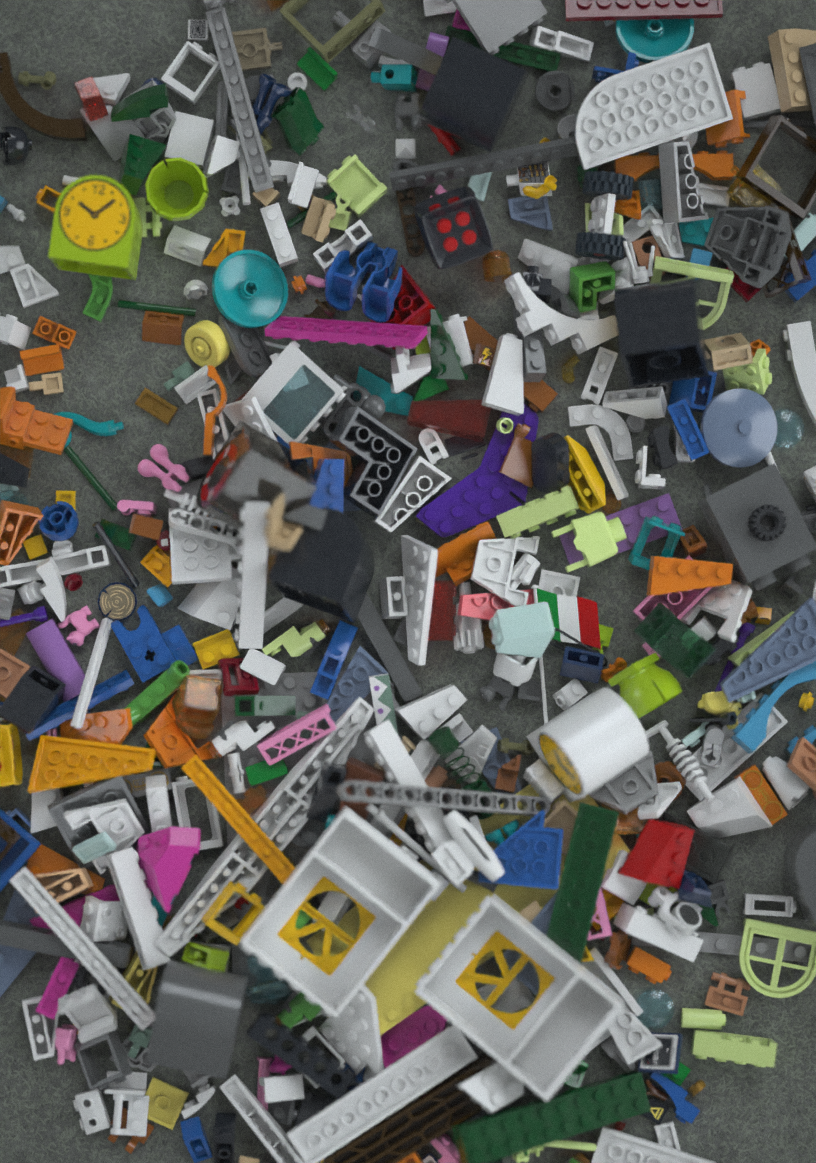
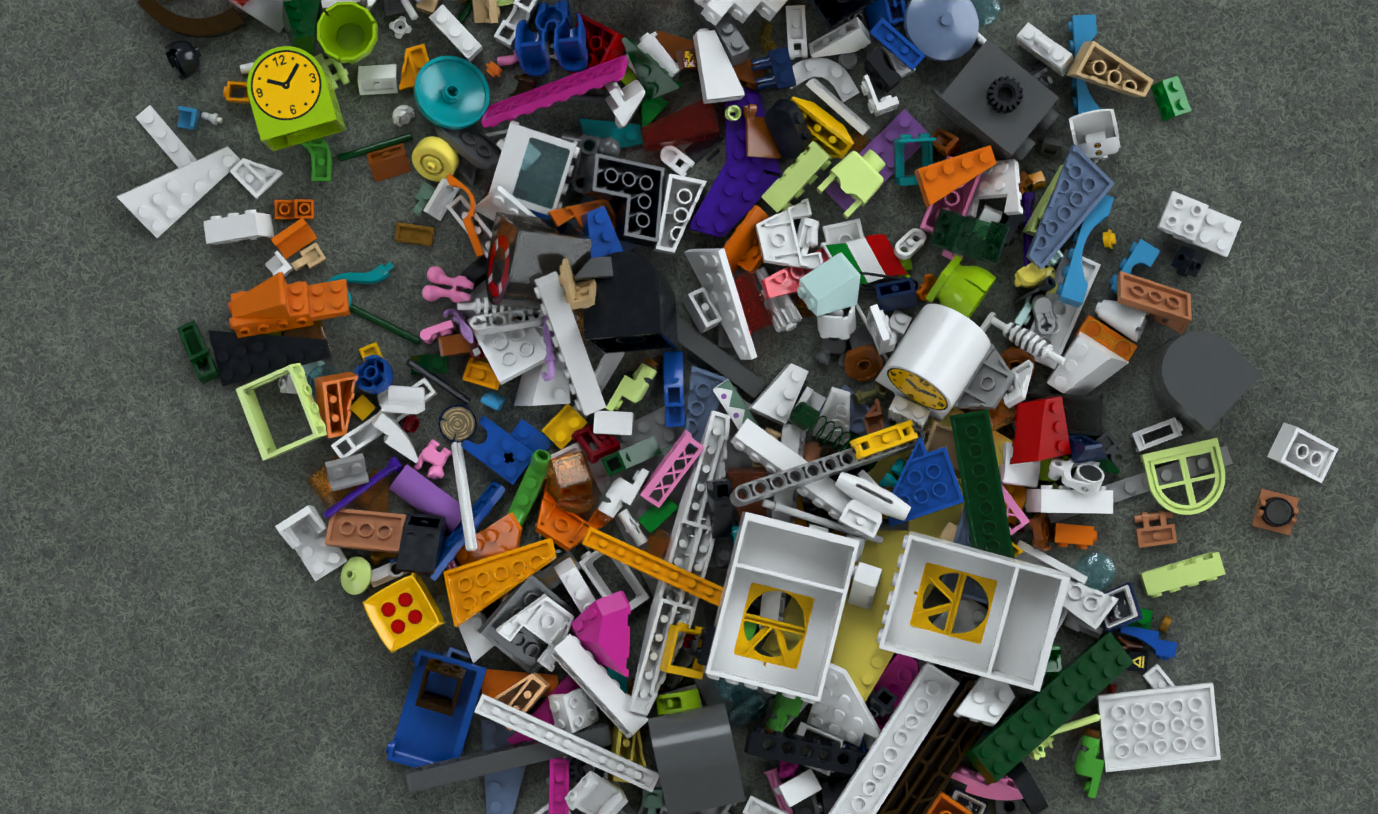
camera: 25 degrees left, 0 degrees up
(30, 592) = (377, 449): white piece -> none
(76, 558) = (404, 400): none -> white panel
(94, 847) = (536, 650): light aqua tile -> none
(162, 503) = (460, 319): none -> lavender piece
(229, 580) = (550, 358): none -> lavender piece
(248, 921) = (702, 652): none -> black plate
(395, 1043) = (881, 702): none -> black brick
(428, 925) = (864, 585): none -> white wedge
(508, 797) = (884, 439): none -> yellow plate
(519, 706) = (856, 356): none -> dark orange plate
(551, 692) = (880, 331): none -> white plate
(569, 404) = (781, 67): none -> dark blue brick
(615, 623) = (908, 245): none -> white plate
(702, 1018) = (1142, 561): yellowish green brick -> none

